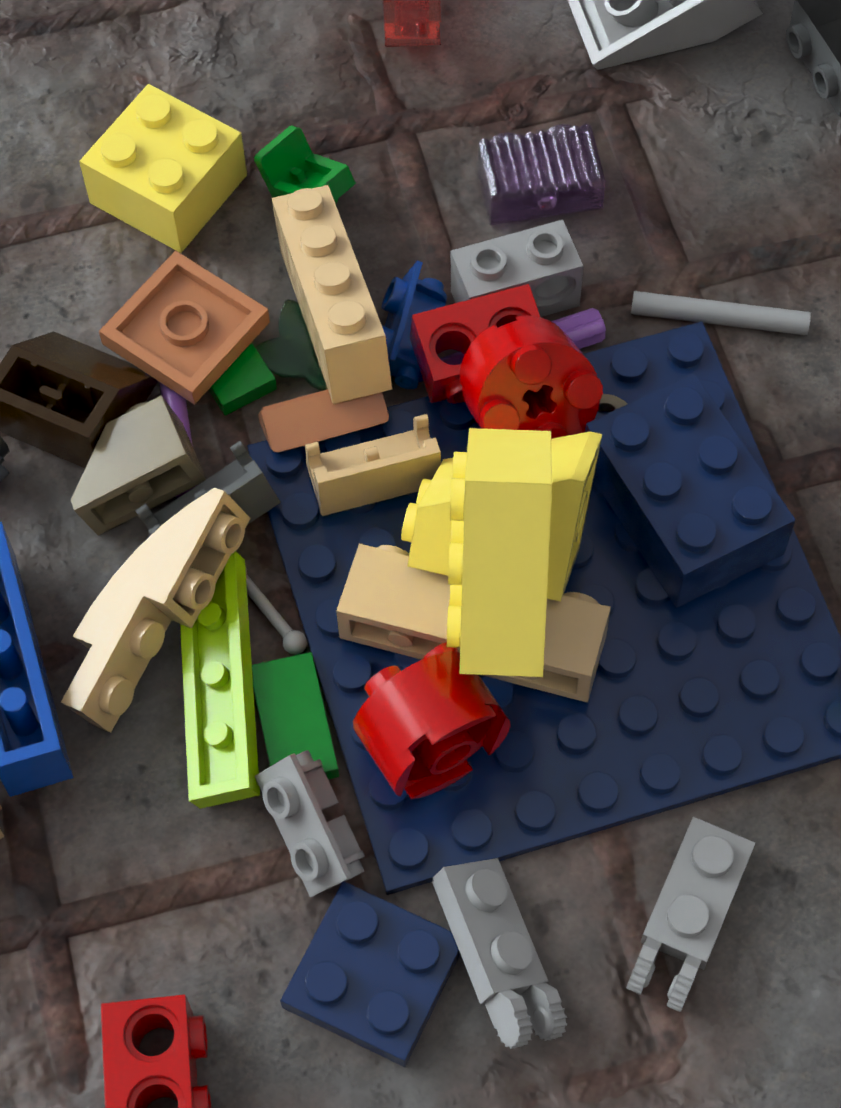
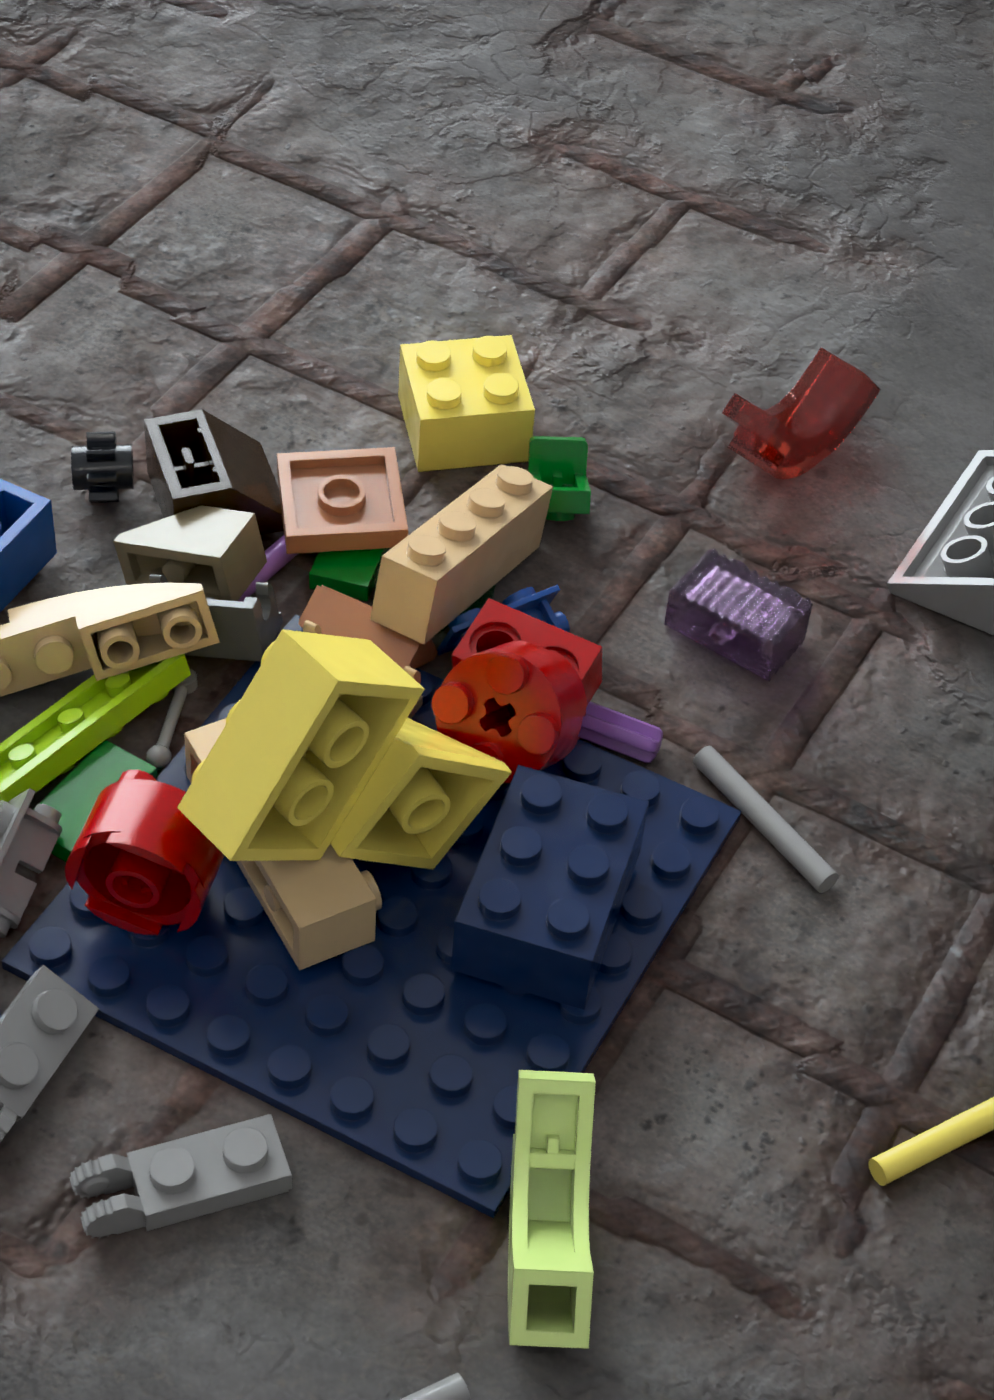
camera: 40 degrees right, 15 degrees down
(534, 256) = (642, 660): light grey brick -> none

